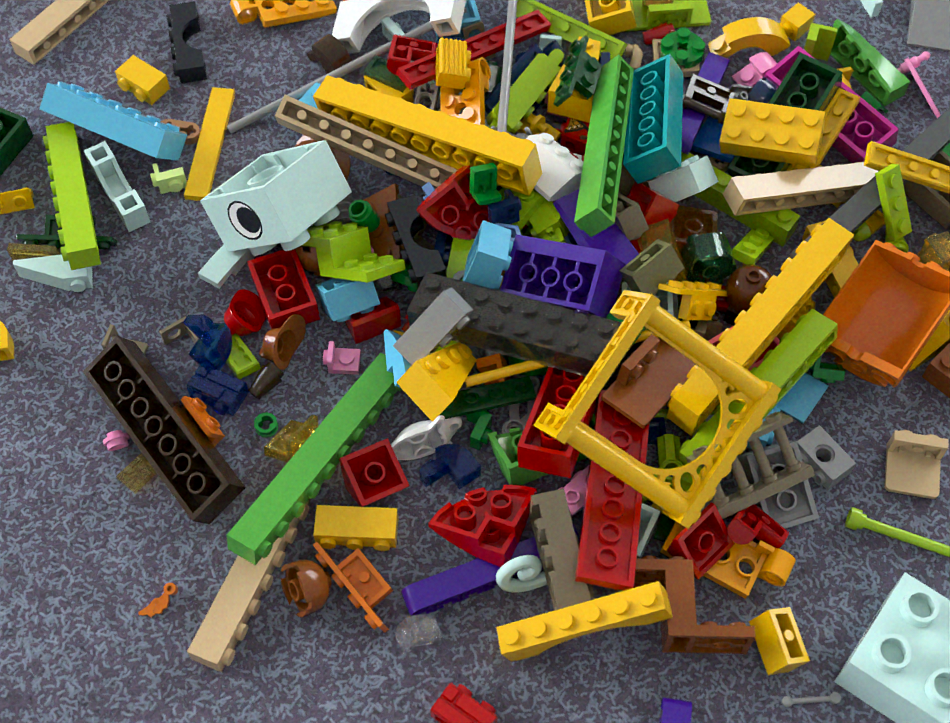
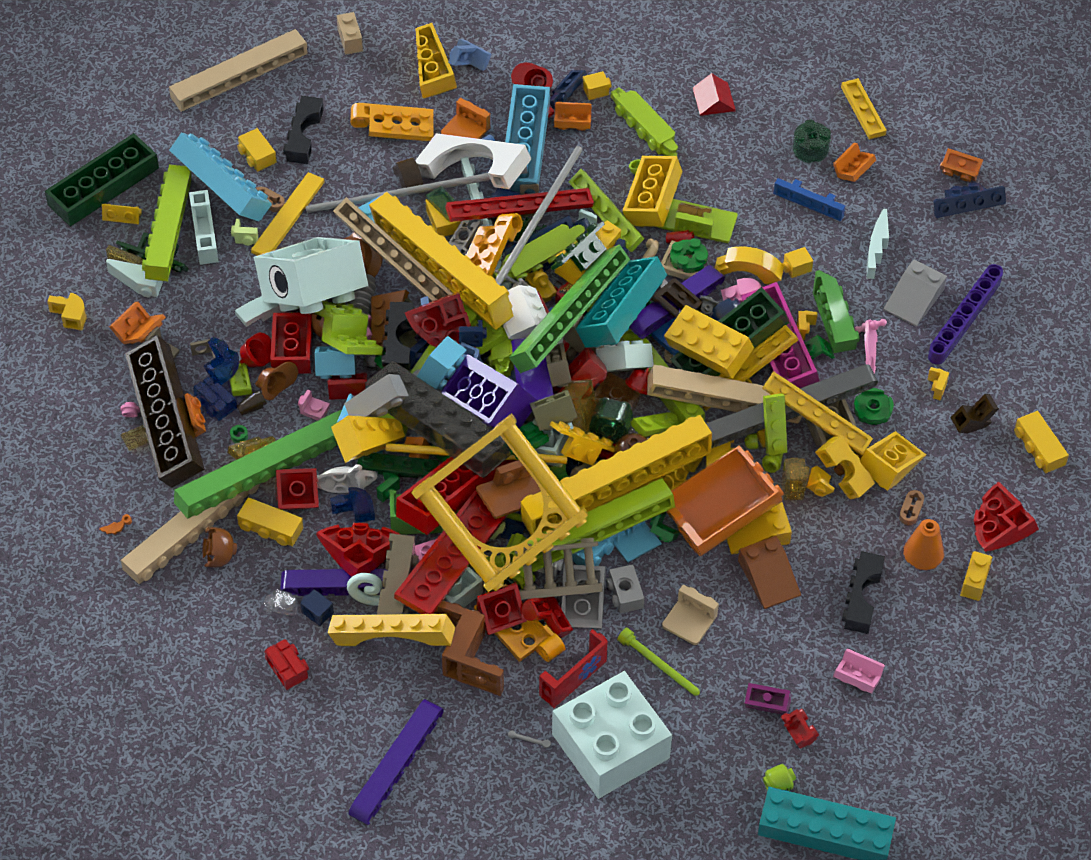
camera: 20 degrees right, 5 degrees down
(81, 330) = (135, 324): none -> orange bracket
(362, 581) = (257, 558): orange bracket -> none
(364, 215) = (371, 306): green brick -> none
(407, 49) = (464, 188): red brick -> none
(452, 63) = (489, 211): yellow brick -> none
(466, 621) = (316, 607): none -> dark blue brick
(483, 184) = (461, 310): green bracket -> none
(712, 202) = (638, 380): none -> red piece
(779, 641) = (523, 692): yellow brick -> none
(820, 41) = (798, 284): lime panel -> none
(840, 547) = (556, 691): none -> red panel

